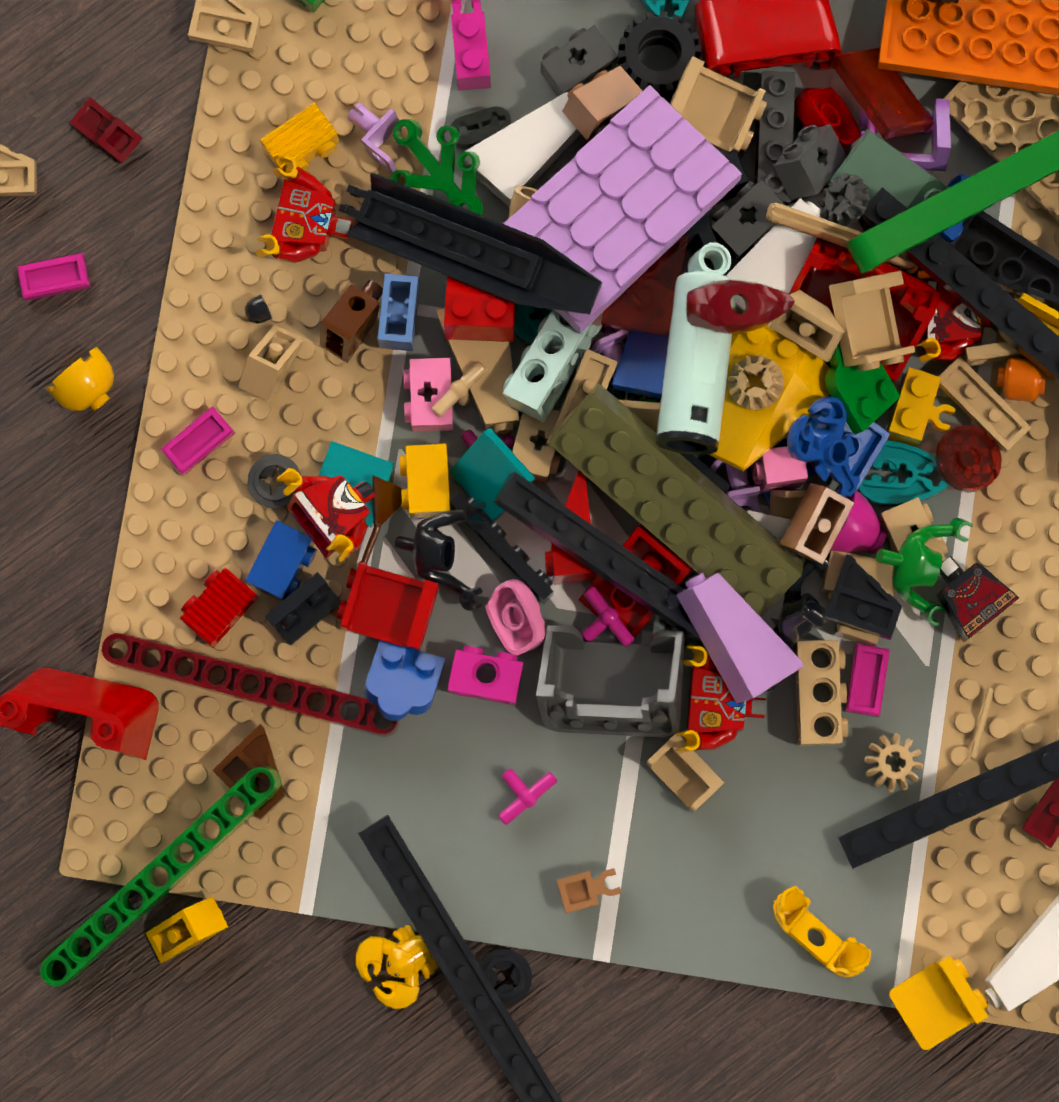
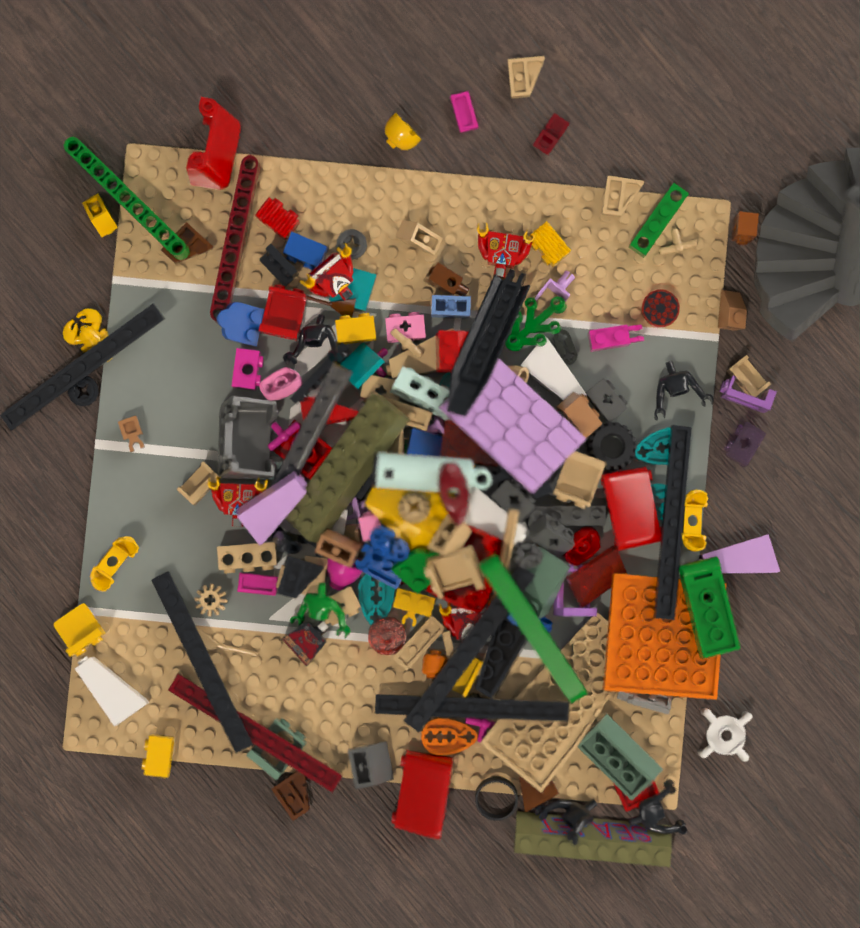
camera: 90 degrees right, 5 degrees up
(197, 441) = (372, 200): dark pink tile -> none
(257, 310) = (449, 228): black hinge -> none
(526, 796) = (182, 396): dark pink piece -> none

